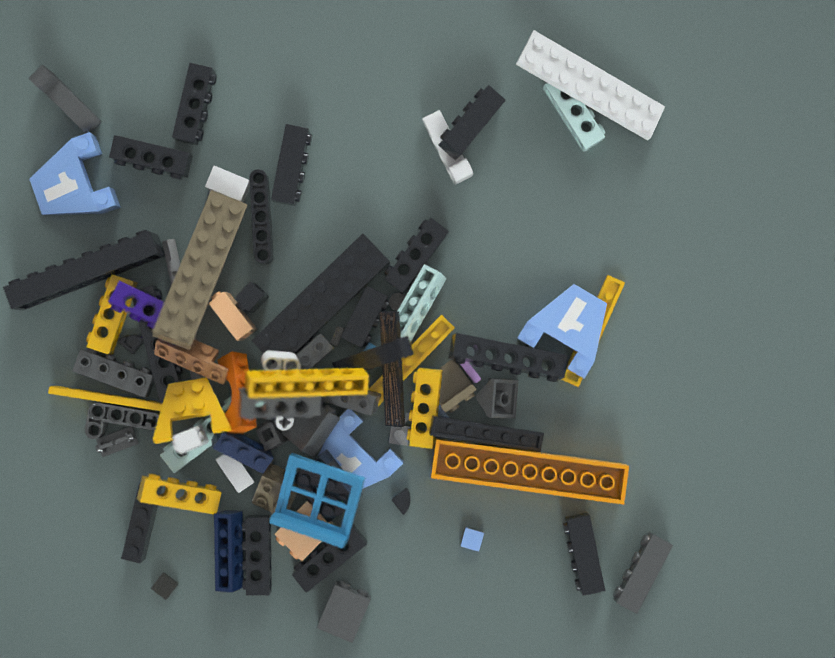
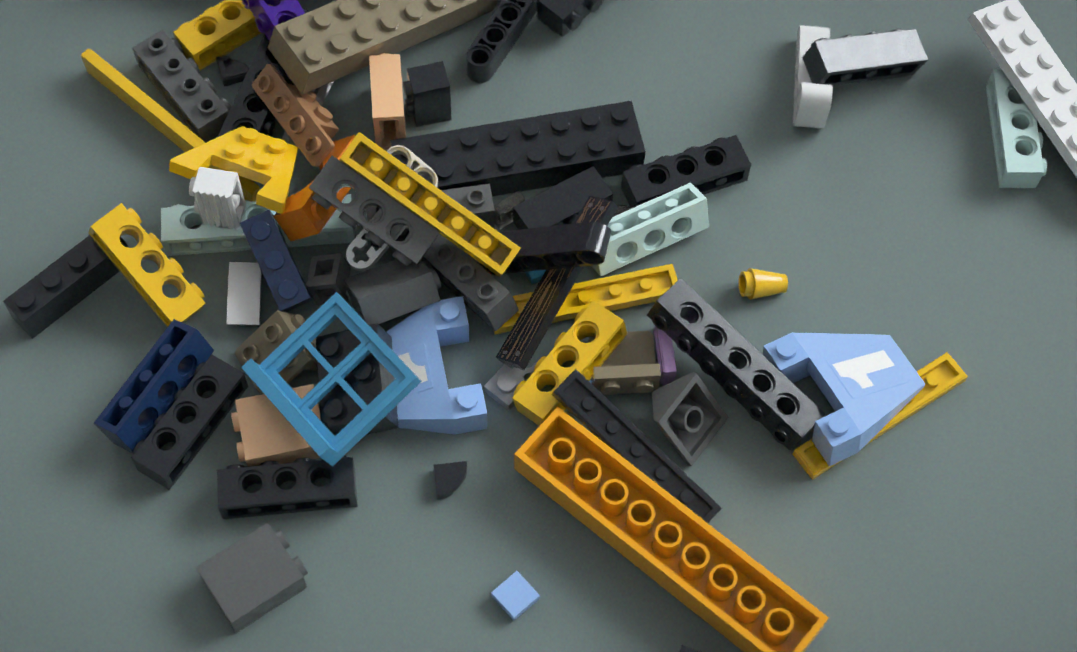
camera: 30 degrees right, 25 degrees down
(108, 416) = (132, 131): dark grey beam -> none
(116, 441) = (117, 169): dark grey hinge -> none
(164, 586) = (29, 387): clear smoke tile -> none
(491, 296) = (761, 283): none -> yellow cone

